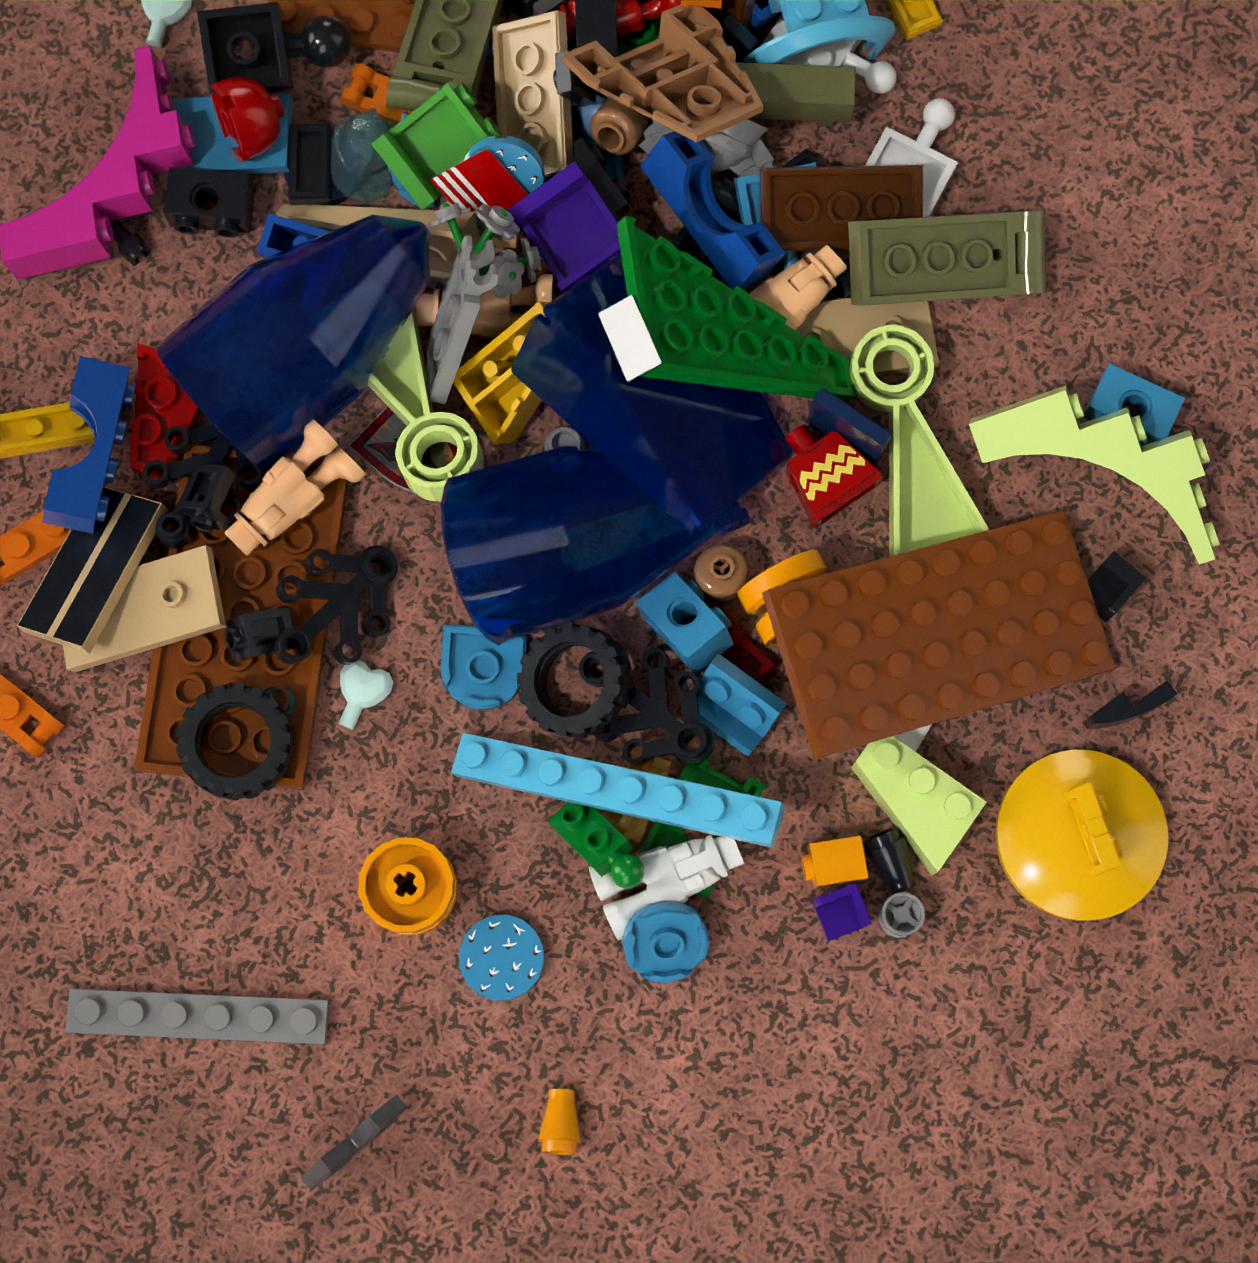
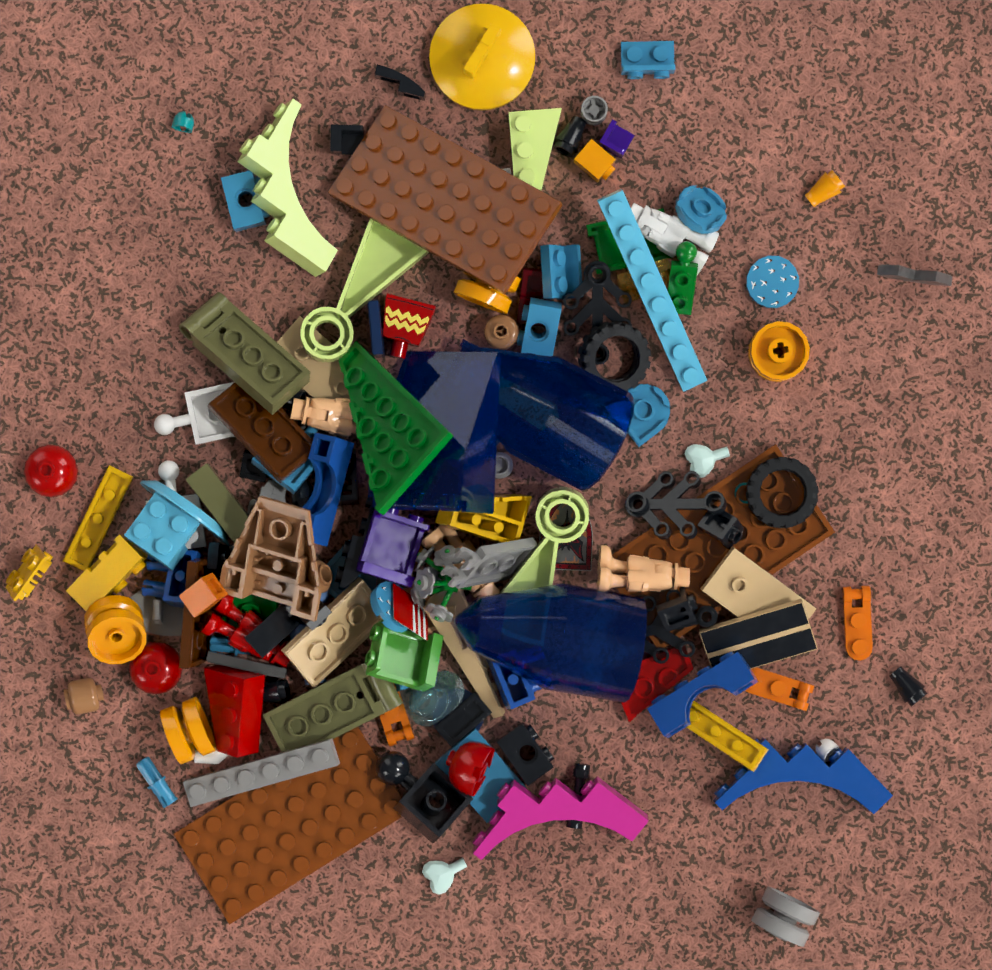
camera: 130 degrees left, 10 degrees up
(197, 1016) = (921, 400): light grey plate -> none
(629, 338) = (440, 455): white sticker -> none
(911, 1040) = (647, 58): none -> dark azure bracket

